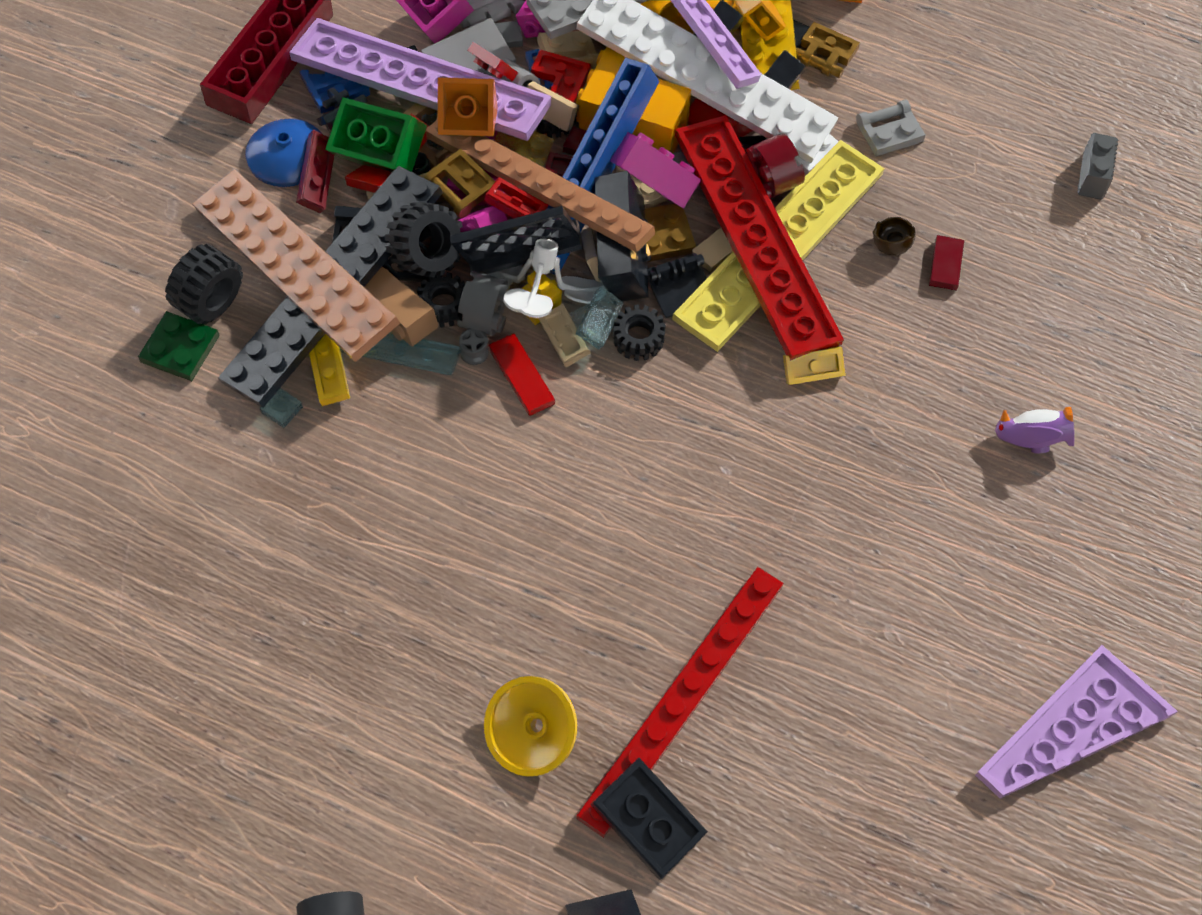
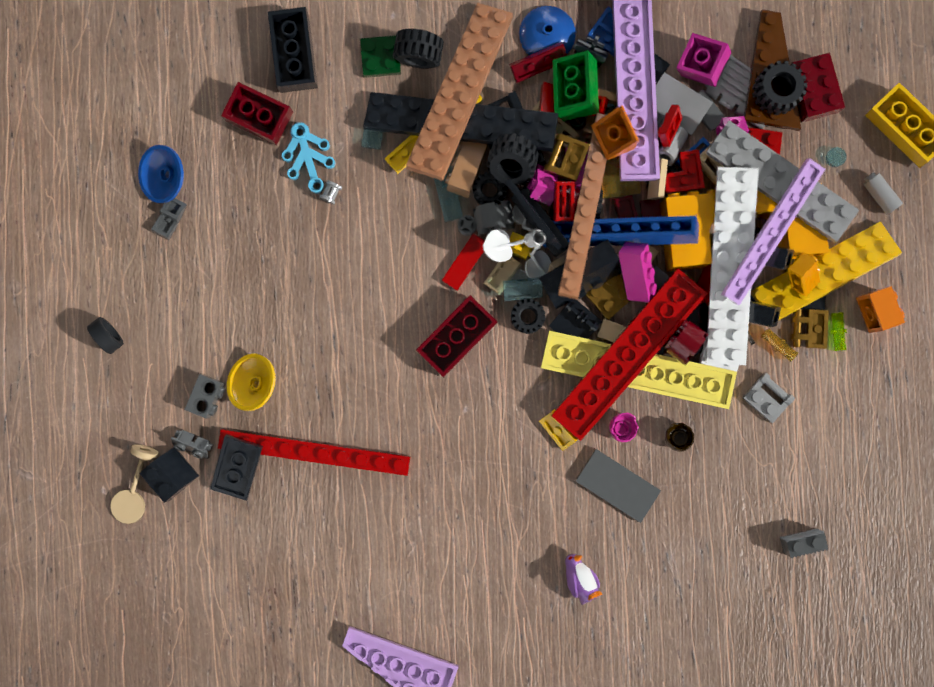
camera: 65 degrees right, 25 degrees up
(93, 439) = (292, 50): none -> black brick
(121, 704) = (160, 174): none -> blue dish
(147, 527) = (257, 113): none -> dark red brick
(211, 732) = (169, 218): none -> dark grey slope
(249, 497) = (306, 154): none -> medium azure plant
(320, 490) = (330, 192): none -> light grey bush
(506, 815) = (200, 394): none -> dark grey brick
(589, 864) = (184, 442): none -> dark grey hinge
(619, 423) = (456, 336): none -> dark red brick
(830, 86) = (779, 345): none -> clear yellow pin
(845, 26) = (838, 331): none -> clear neon green pin
(848, 290) = (623, 427): none -> dark pink hair
(924, 335) = (618, 485): none -> dark grey tile
(946, 262) = (679, 477): dark red tile -> none

